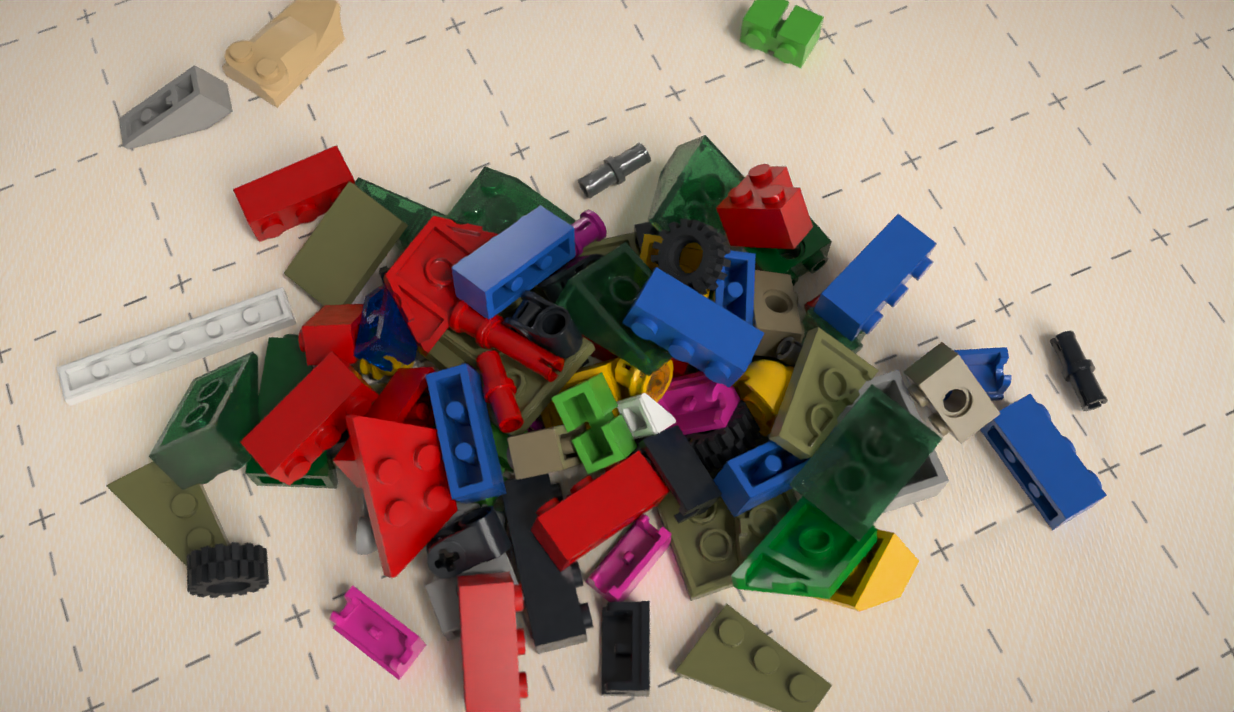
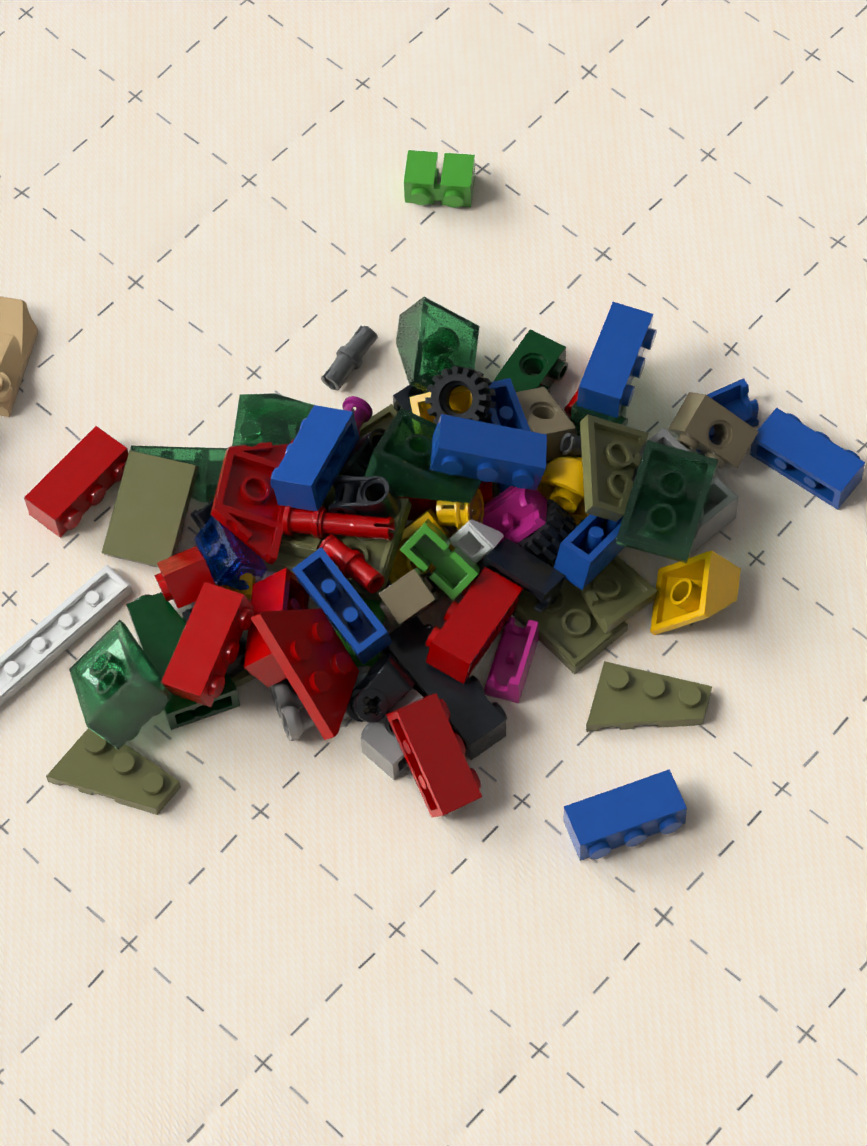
camera: 20 degrees left, 5 degrees down
(227, 570) = (192, 790): black tyre -> none
(377, 633) = (336, 791): dark pink hinge -> none
(626, 649) = (540, 724): black hinge -> none
(765, 210) = (501, 340): red brick -> none
(803, 555) = (649, 592): green wing -> none
(1078, 371) = (809, 376): black pin -> none

